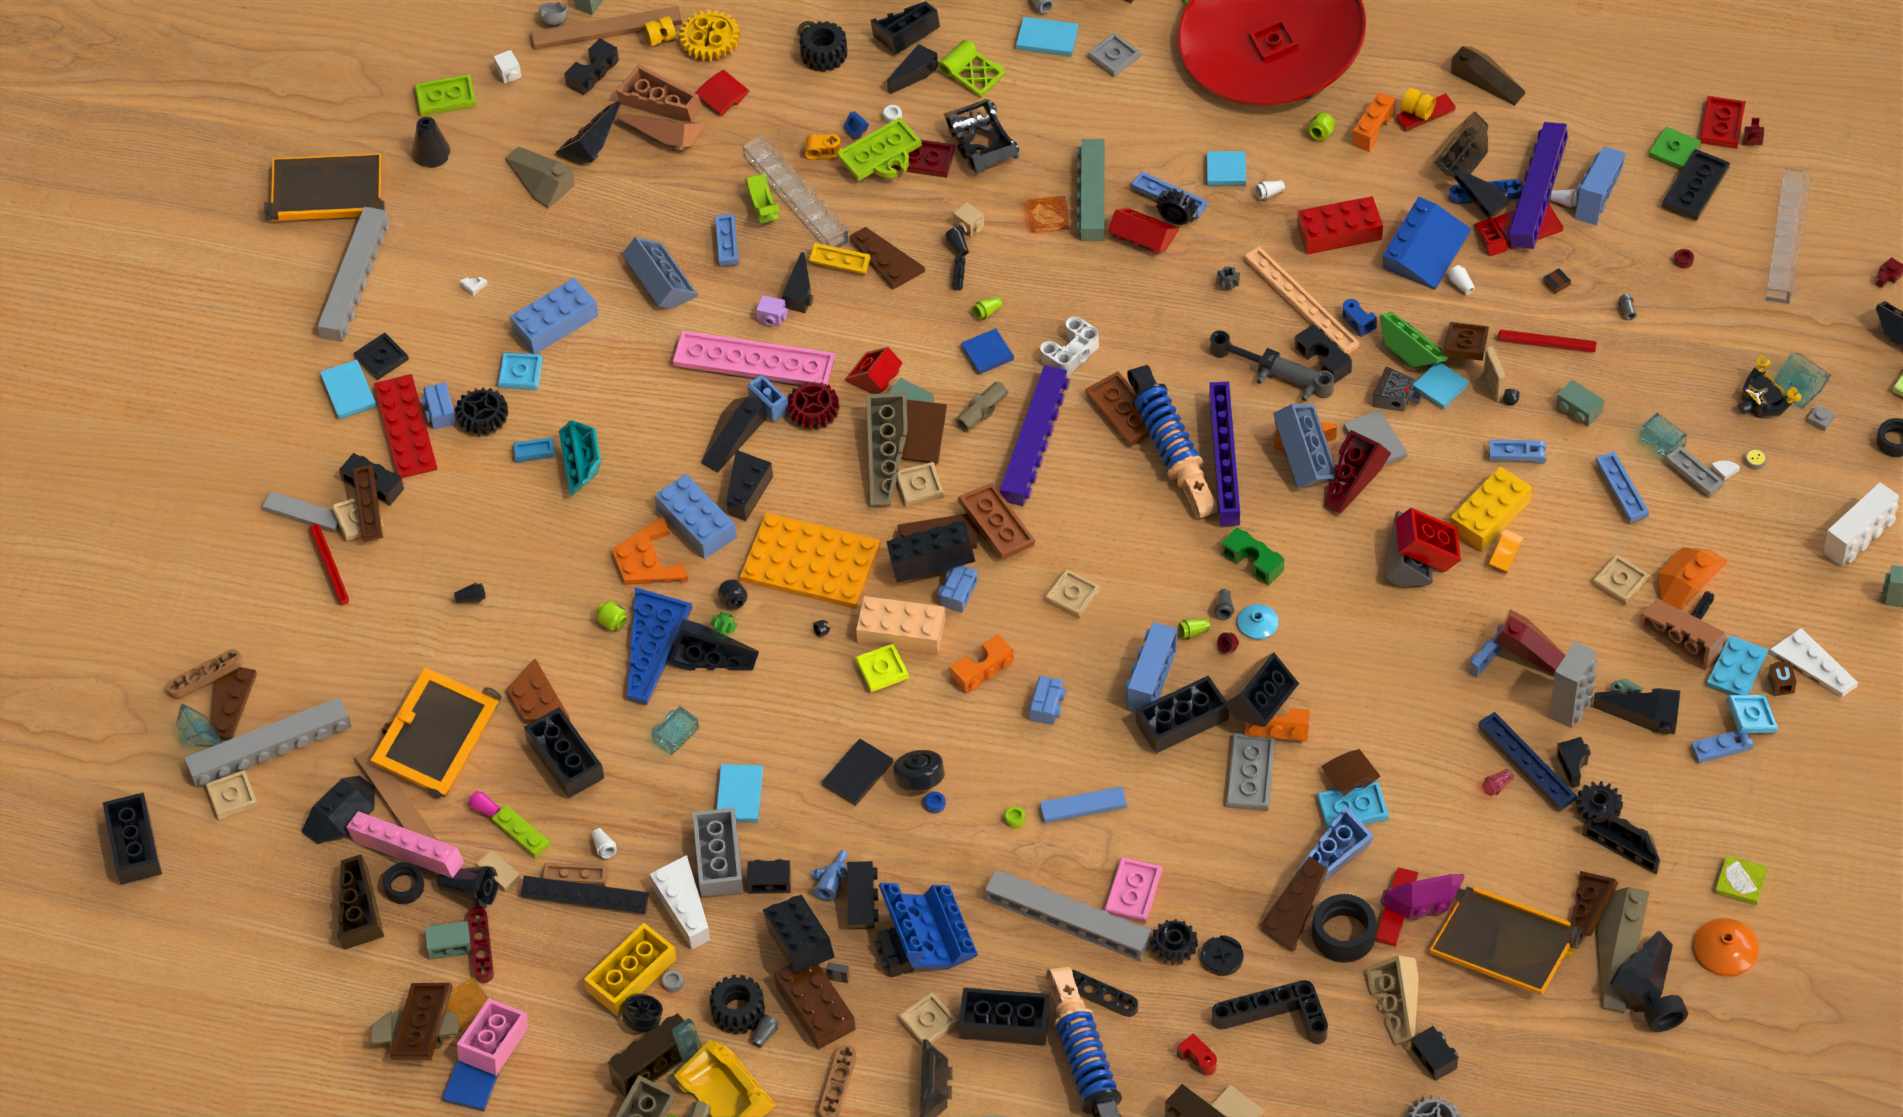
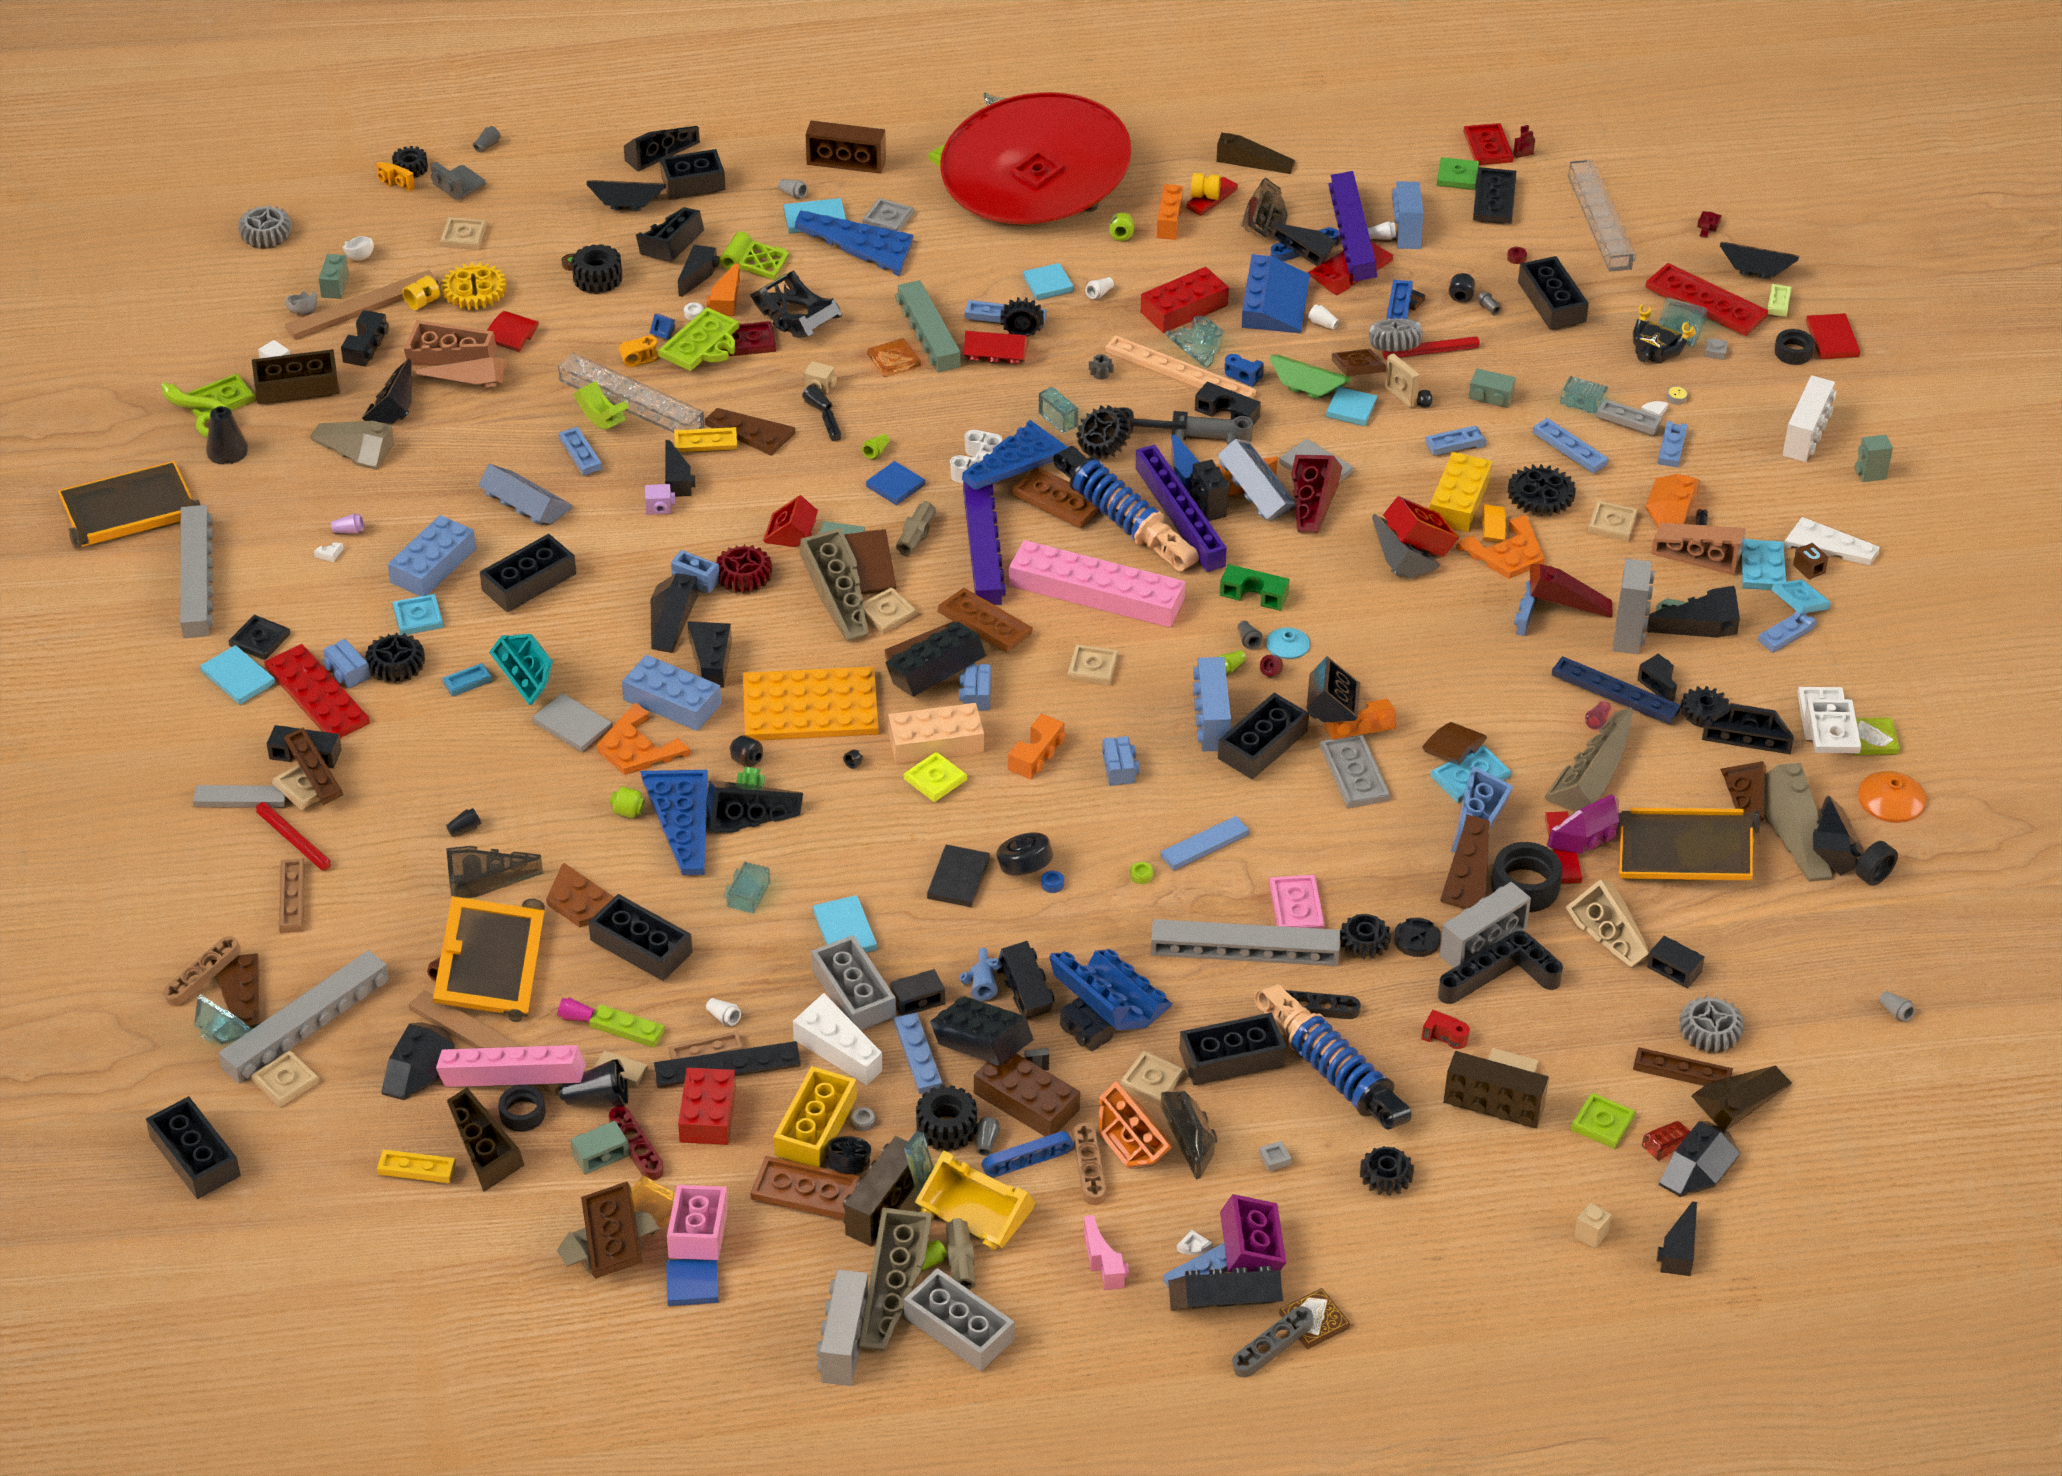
camera: 25 degrees left, 10 degrees down
(299, 910) = (416, 1166): none -> yellow plate
(306, 621) = (292, 895): none -> medium nougat tile
(409, 90) = (181, 399): none -> lime plant
(458, 649) = (481, 872): none -> clear smoke wedge
(500, 262) = (349, 524): none -> lavender cone
(514, 93) = (295, 376): none -> dark brown brick
(549, 930) = (707, 1106): none -> red brick
(593, 1028) = (803, 1187): none -> dark orange plate
(602, 519) = (572, 722): none -> light grey tile
(625, 357) = (528, 572): none -> black brick
(745, 933) = (917, 1052): none -> medium blue plate
(753, 359) = (658, 544): bright pink plate -> none
(789, 1059) = (1003, 1161): none -> blue beam
(884, 1063) = (1130, 1128): none -> orange wedge
(927, 103) = (725, 292): none -> orange slope
(1078, 79) = (864, 241): none -> blue wing
(1100, 357) = (1014, 455): none -> blue wing
(1113, 511) = (1097, 583): none -> bright pink brick
(1166, 314) = (1058, 409): none -> clear light blue brick
(1198, 357) = (1105, 427): none -> black gear
(1251, 411) = (1182, 461): none -> blue slope
(1258, 443) = (1209, 490): none -> black brick
(1279, 965) = (1484, 924): none -> light grey brick
(1338, 271) = (1203, 335): none -> clear light blue piece
(1395, 391) = (1314, 420): dark grey torso -> none
(1453, 843) = (1594, 767): none -> dark tan wedge
(1509, 589) = (1510, 556): none -> orange wing
(1516, 320) = (1395, 334): none -> light grey gear
(1538, 286) = (1400, 299): none -> blue plate
(1568, 528) = (1541, 490): none -> black gear
(1609, 282) = (1462, 287): none -> black head
(1691, 313) = (1553, 292): none -> black brick
(1701, 853) = (1829, 720): none -> white bracket
(1721, 512) = (1672, 444): none -> medium blue plate
(1840, 359) = (1721, 304): none -> red plate

